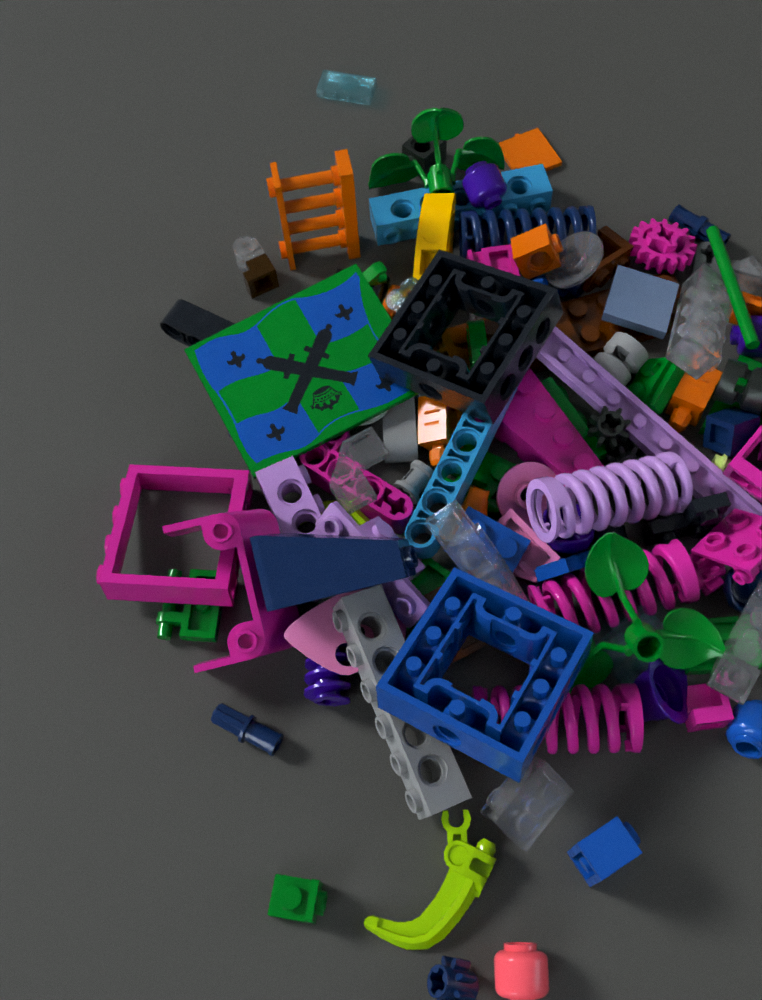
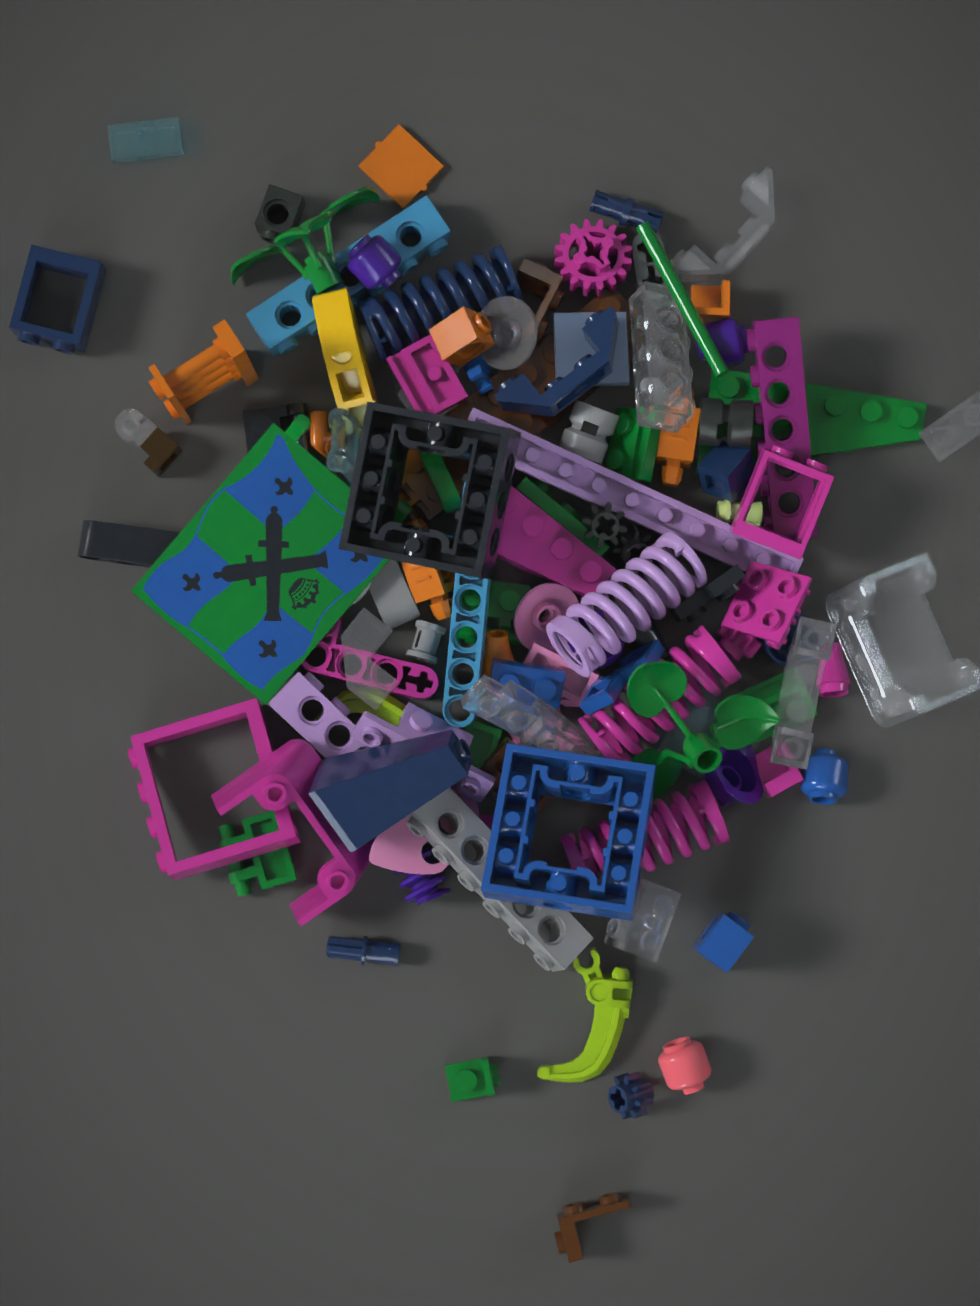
camera: 25 degrees left, 20 degrees up
(245, 135) = (66, 264): none -> dark blue window
(620, 309) = (521, 396): none -> dark blue slope

